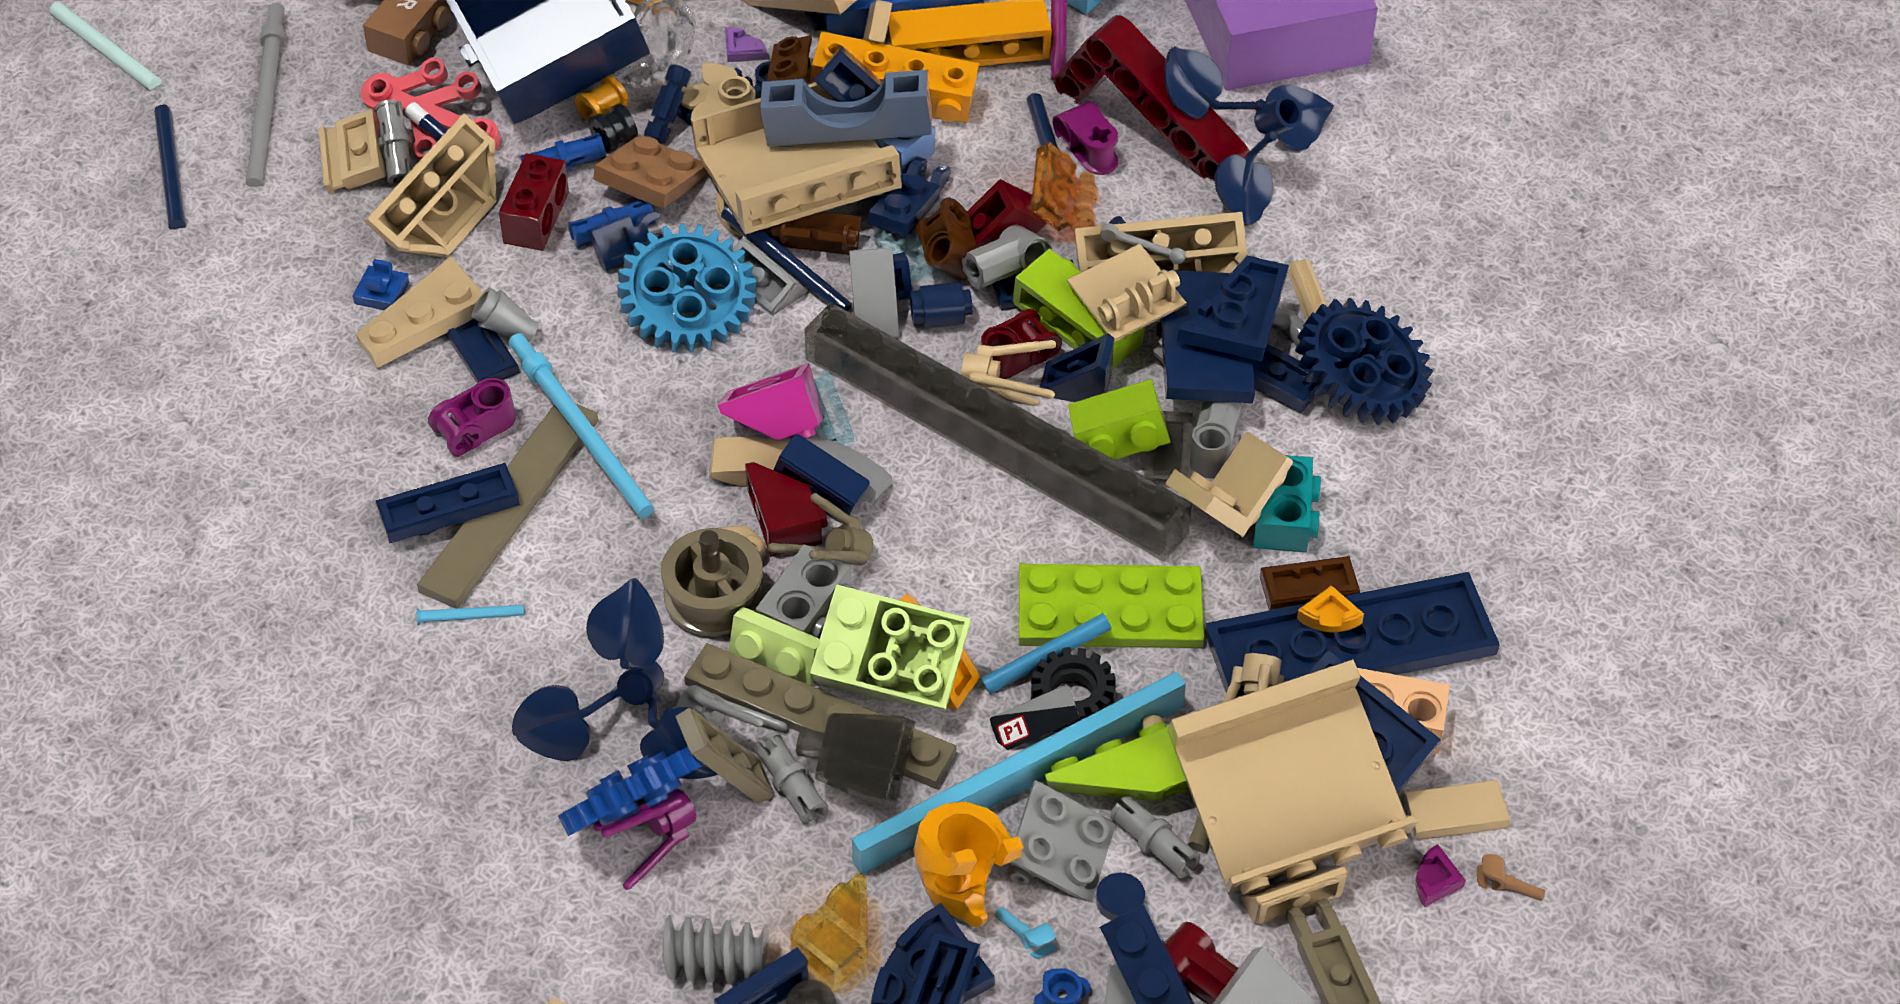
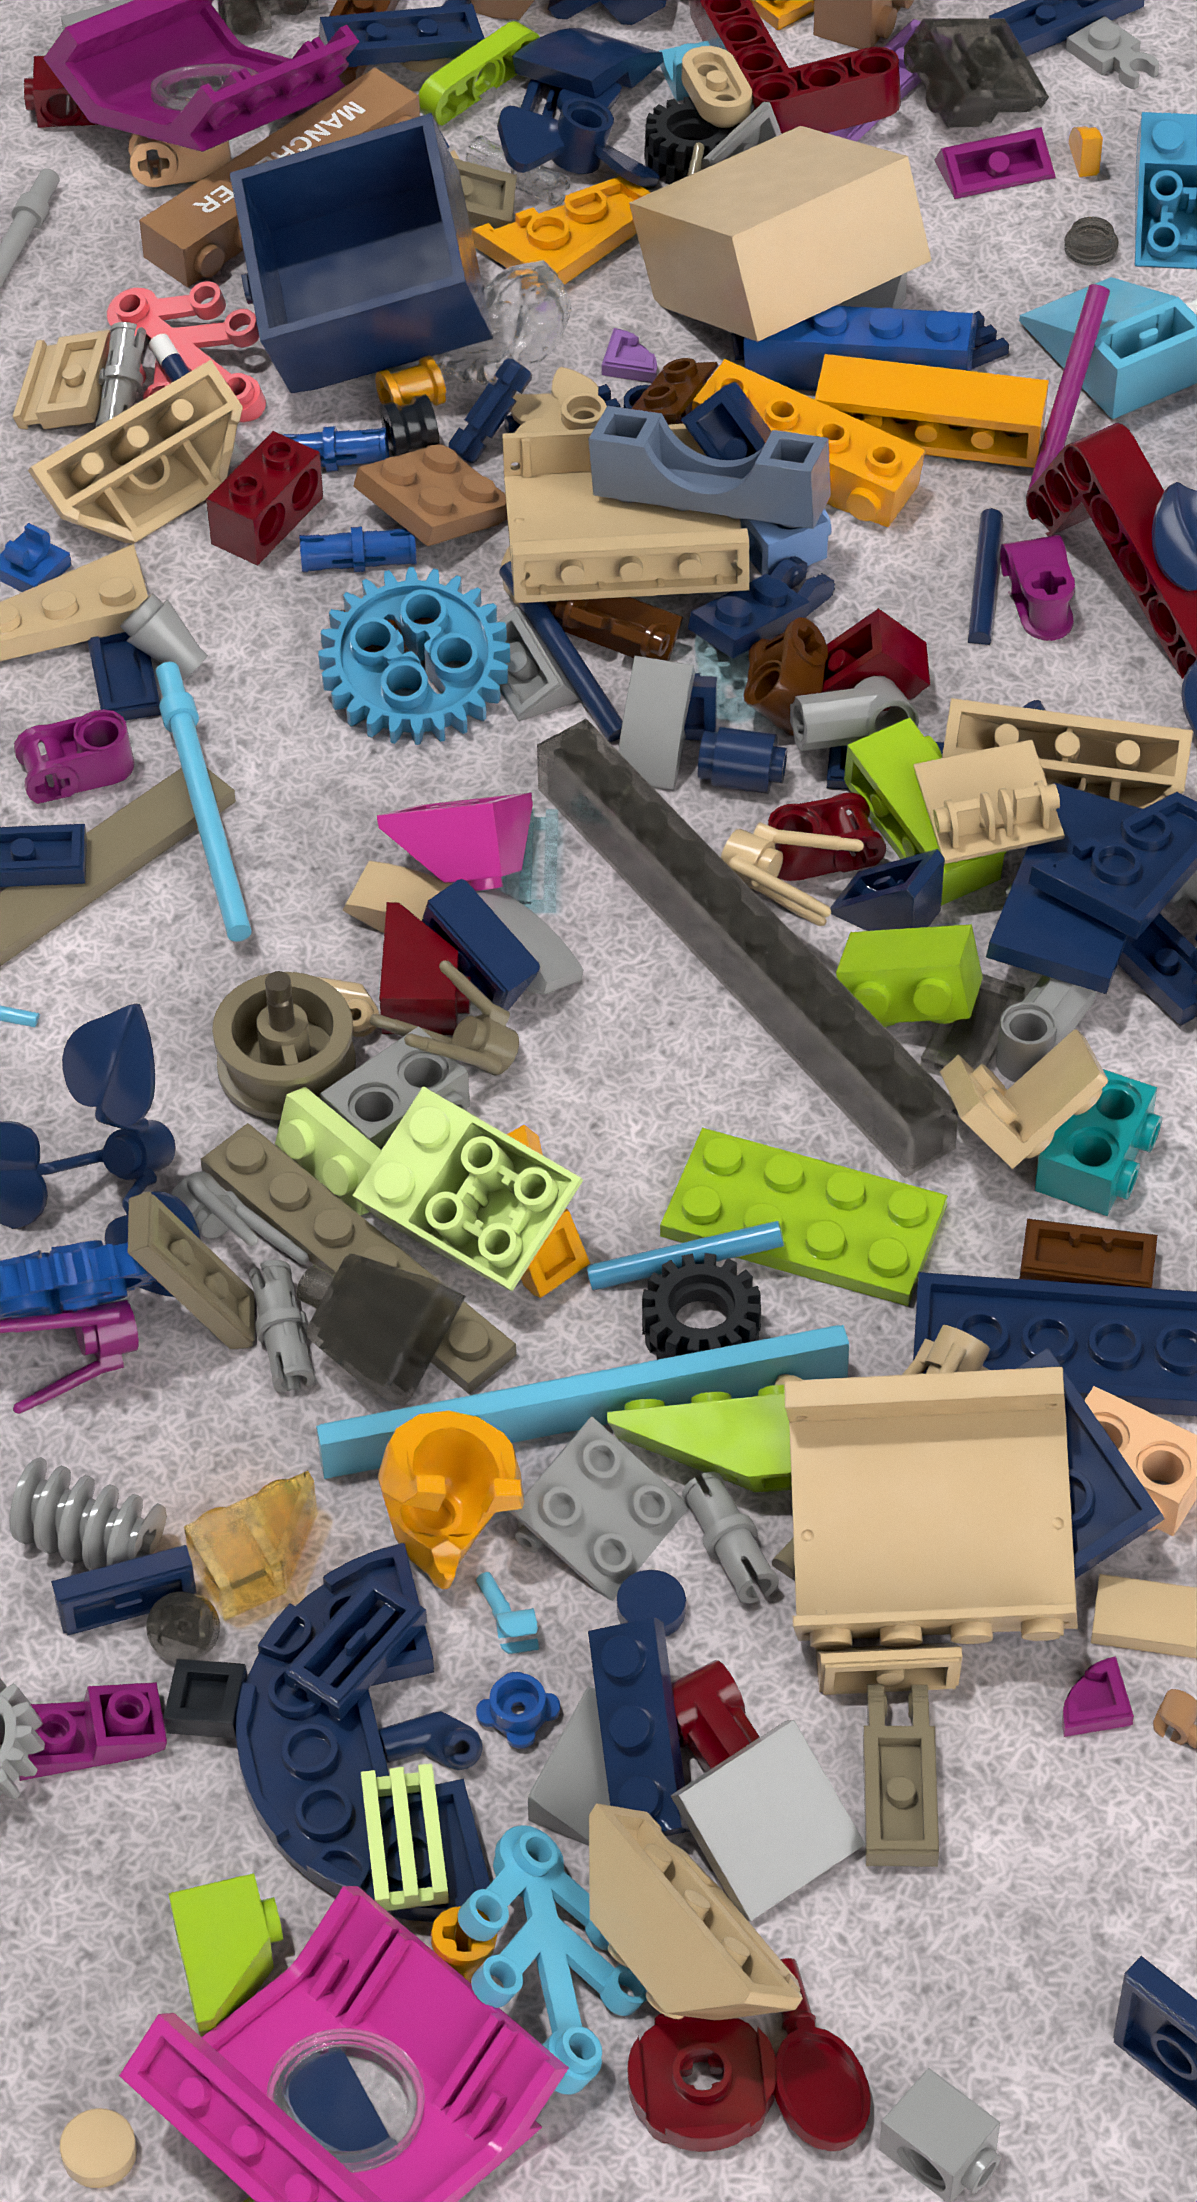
camera: 20 degrees right, 0 degrees up
(618, 237) = (346, 566): dark blue plate -> none
(877, 21) = (805, 363): tan tile -> none
(1035, 718) = (631, 1335): sticker -> none
(1058, 187) = (961, 637): clear orange plate -> none
(1110, 232) = (997, 715): light grey hinge -> none
(1330, 612) = (1093, 1303): light orange tile -> none

